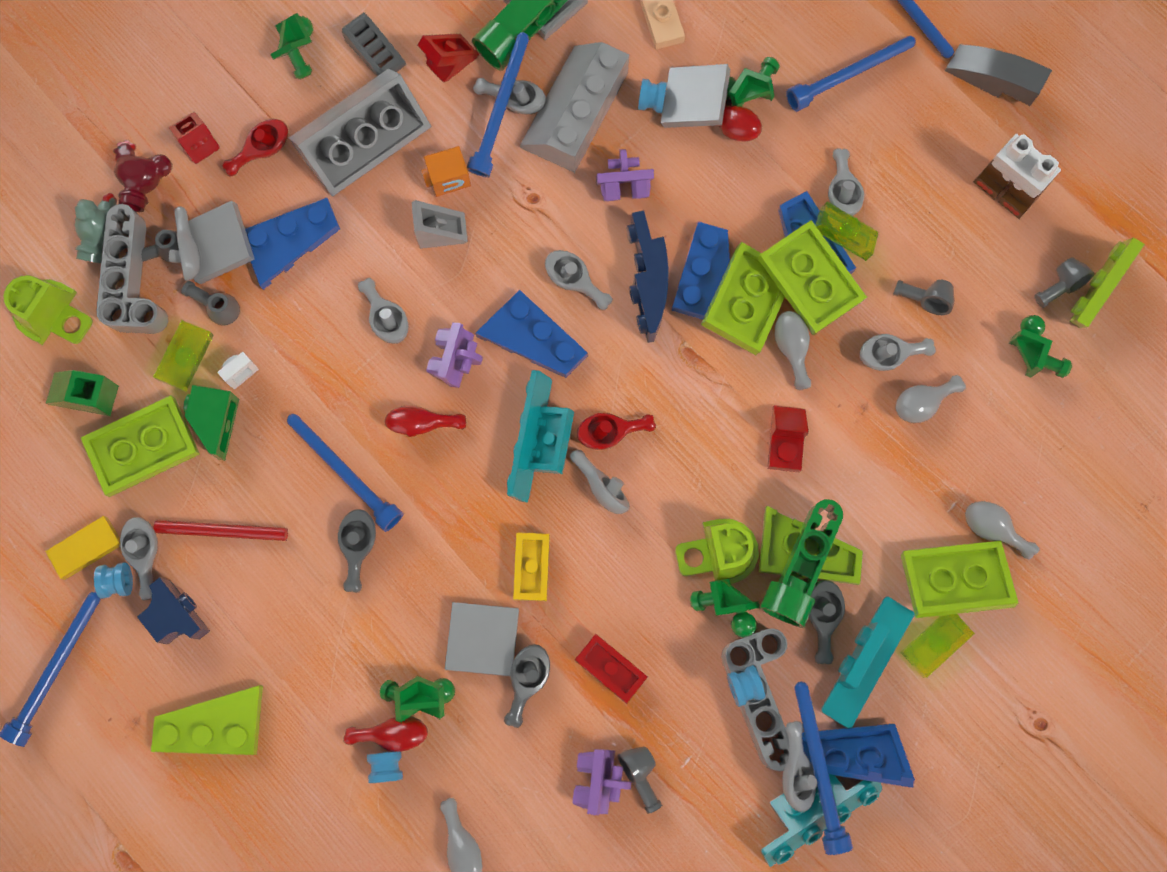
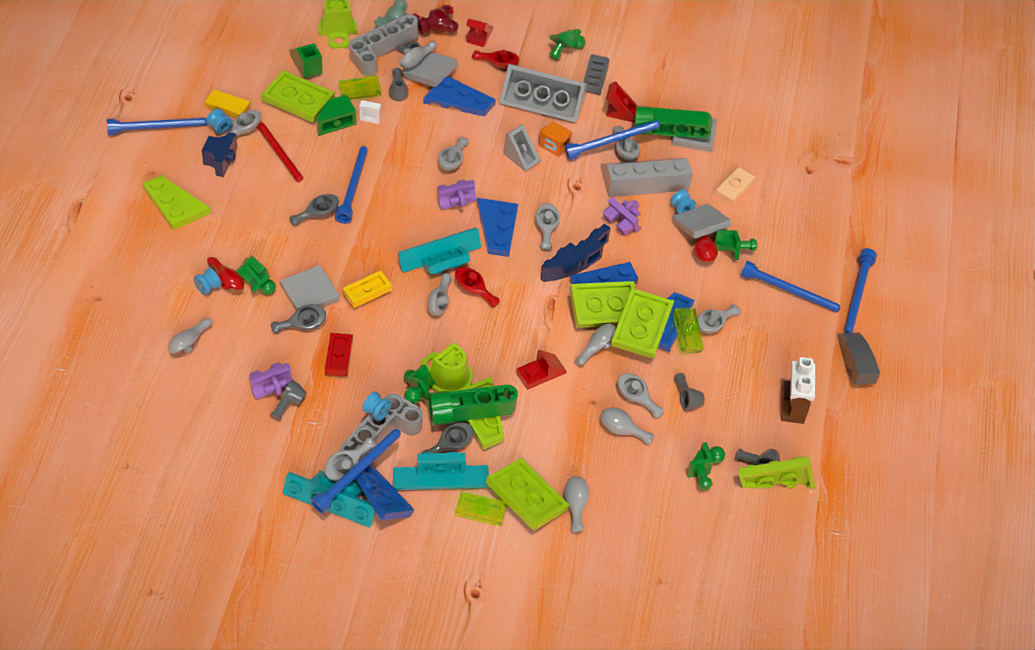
camera: 50 degrees right, 25 degrees down
(417, 420) = (407, 197): red piece -> none

